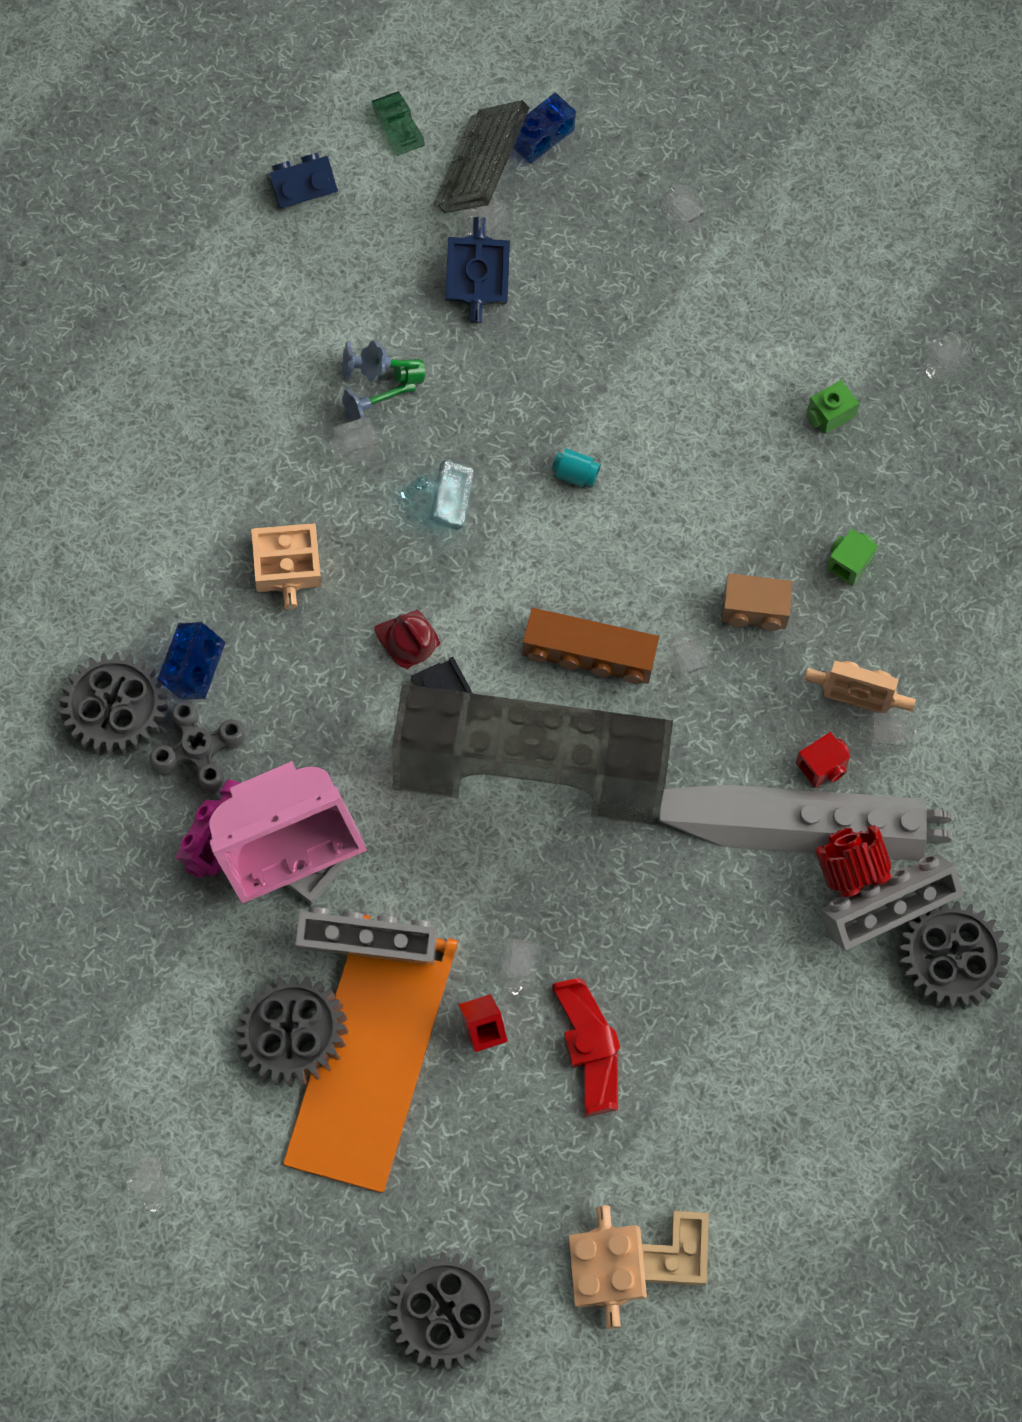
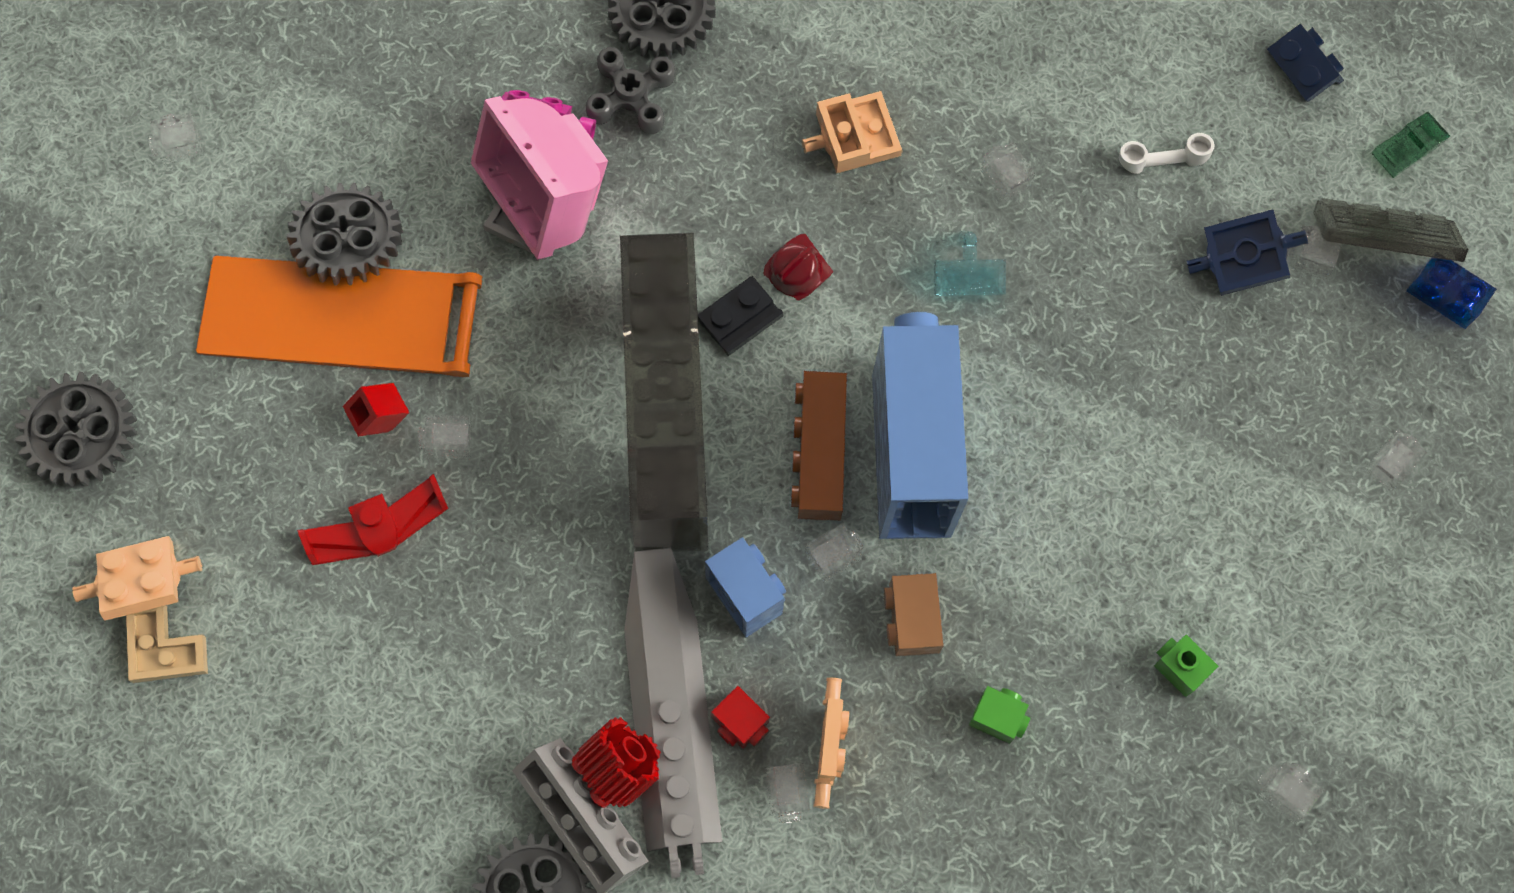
camera: 80 degrees right, 5 degrees up
(191, 661) = (718, 54): clear blue brick -> none
(366, 937) = (442, 277): light grey brick -> none
(368, 289) = (1197, 151): none -> white bar
(373, 363) = (1095, 156): sand blue plant -> none
(576, 468) = (1034, 398): teal brick -> none
(604, 551) = (919, 429): none -> medium blue brick
(713, 729) = (745, 586): none -> medium blue brick

